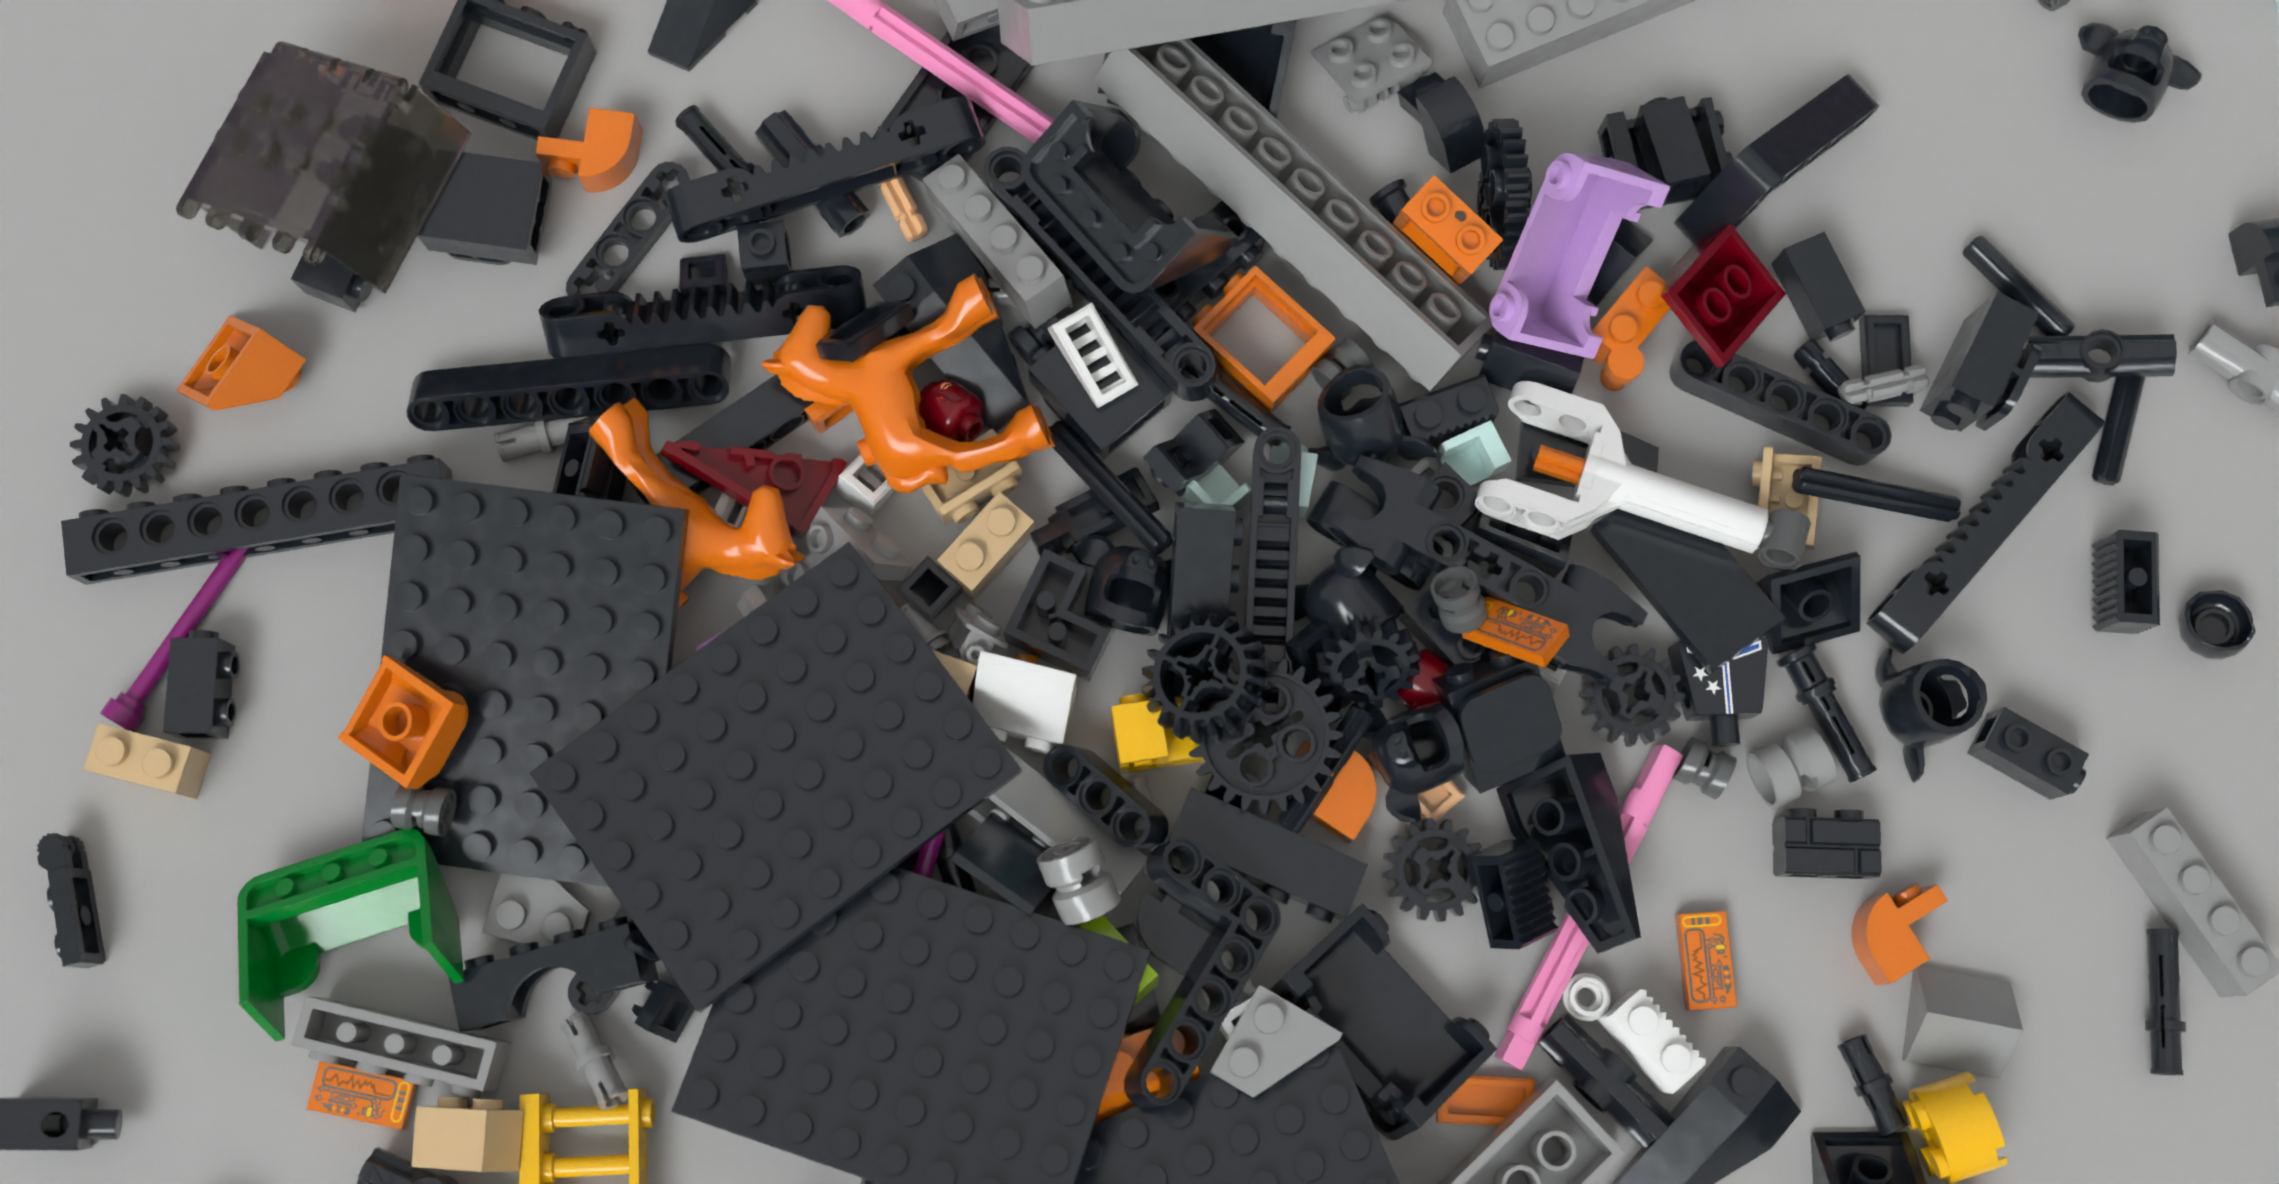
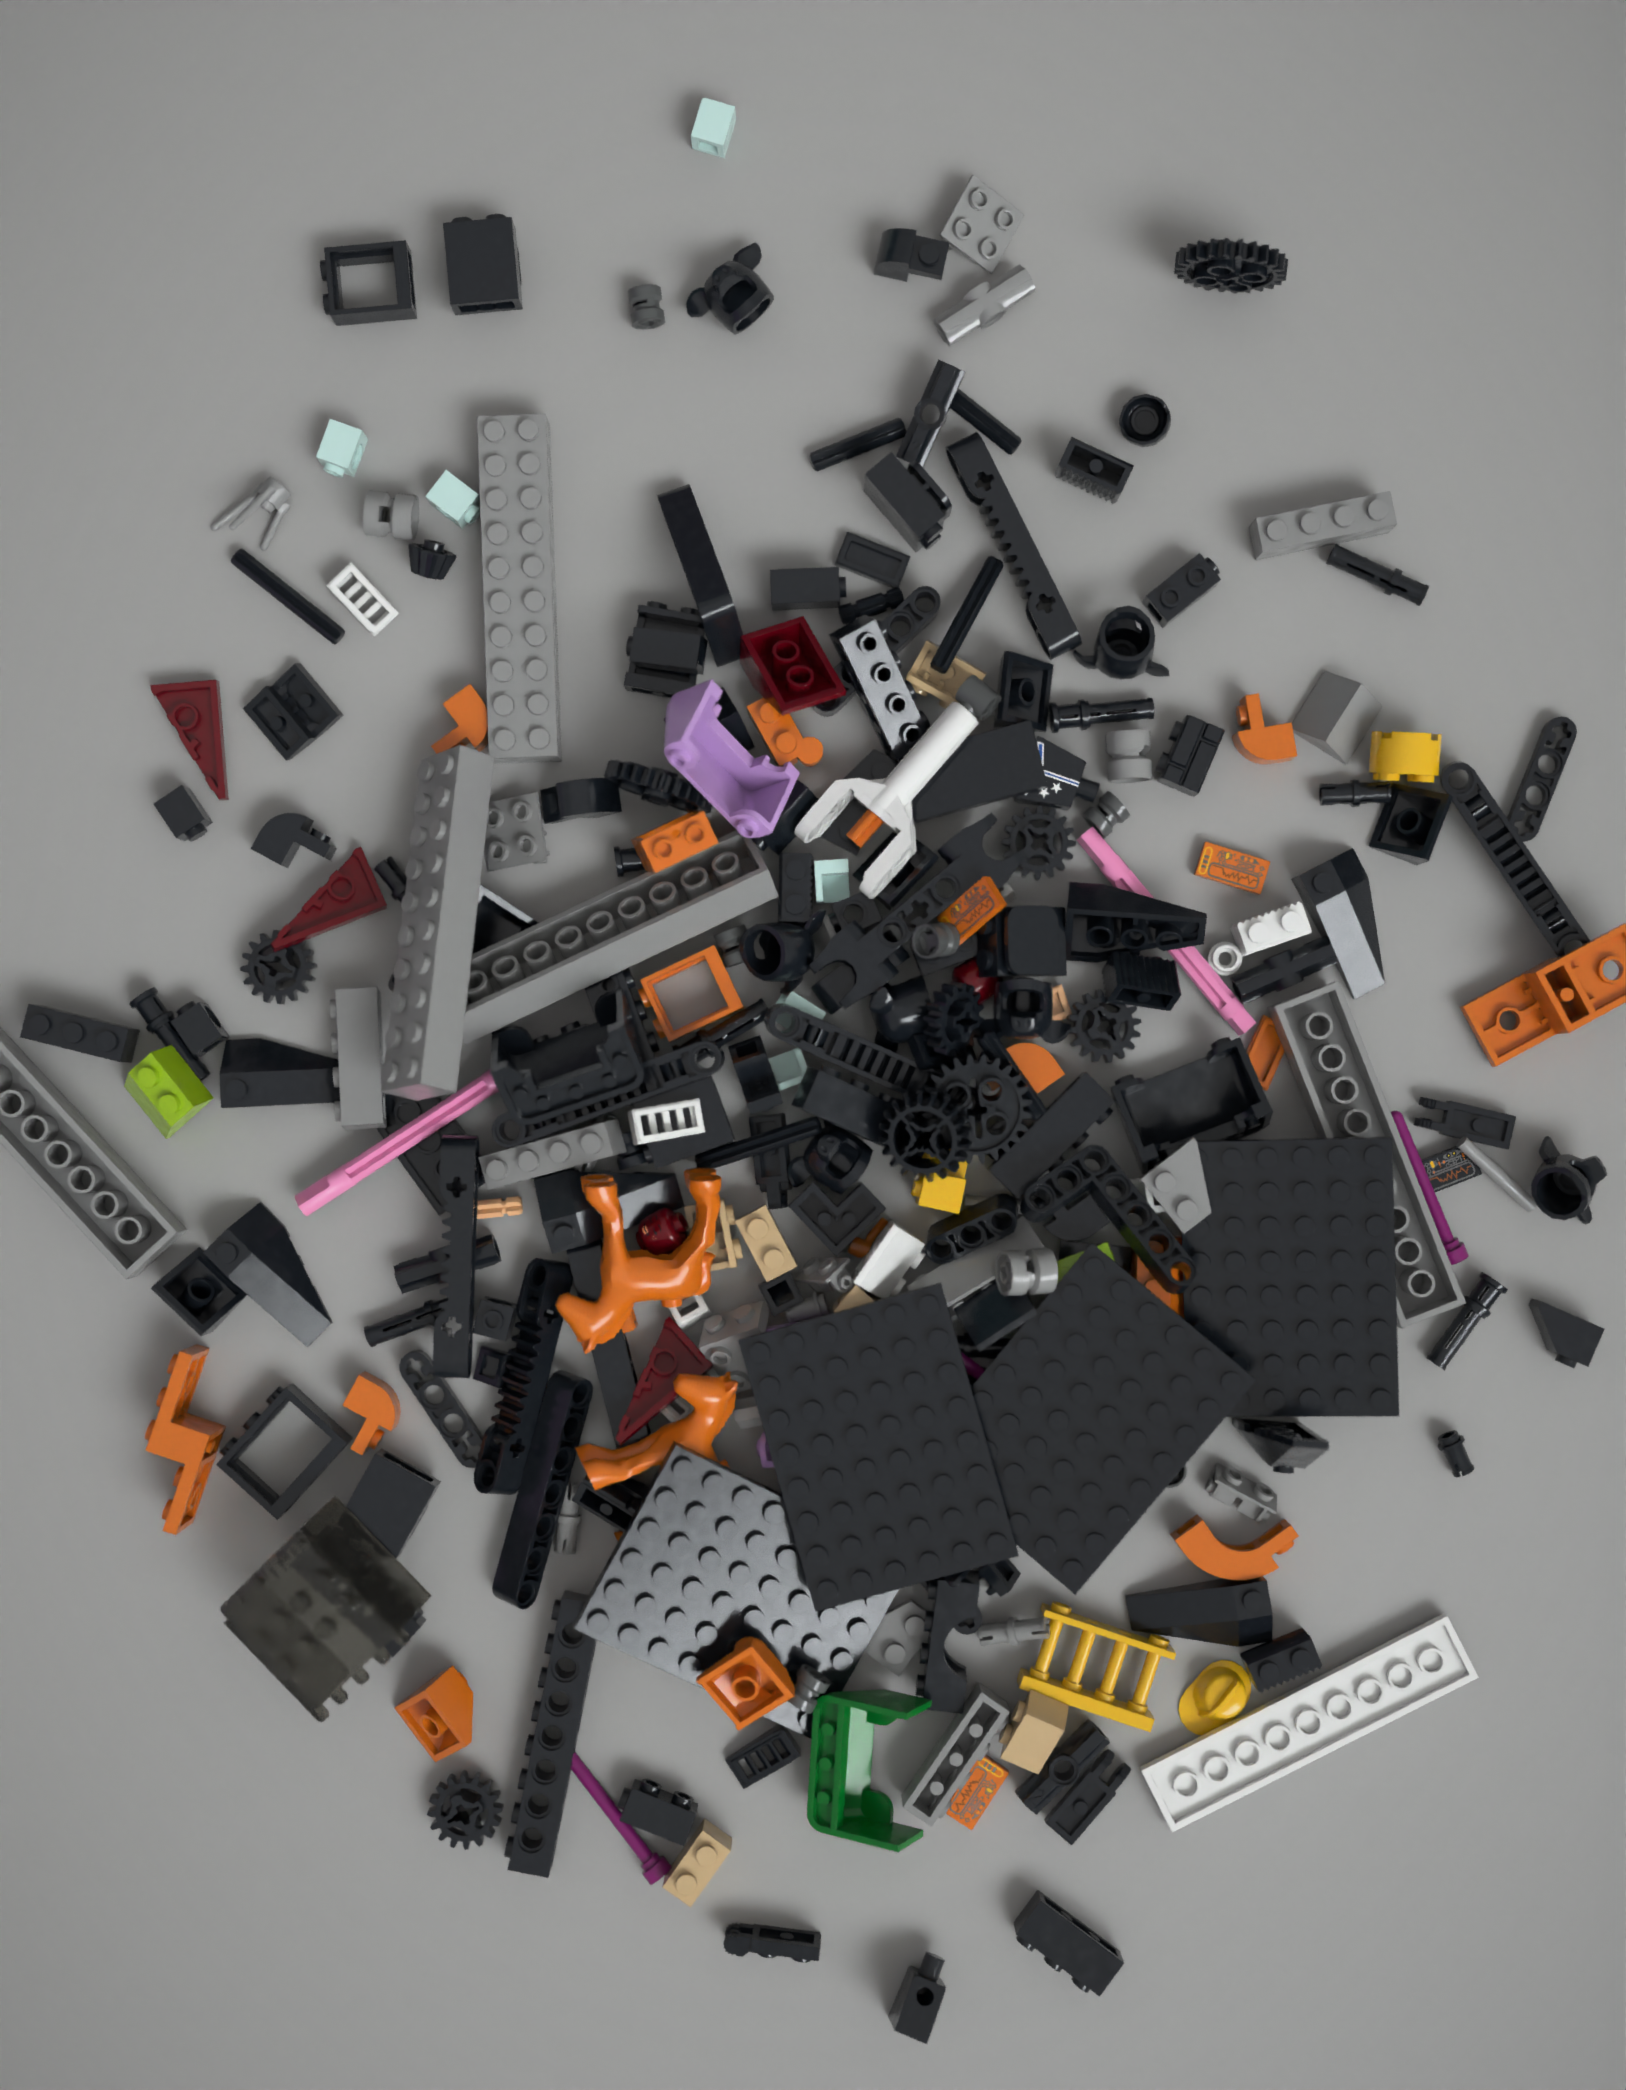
camera: 65 degrees left, 10 degrees up
(346, 819) = (777, 1732): none -> black slope
(865, 331) = (589, 1273): black tile -> none
(1746, 413) = (880, 685): none -> brick
(1884, 385) = (893, 575): light grey axle -> none

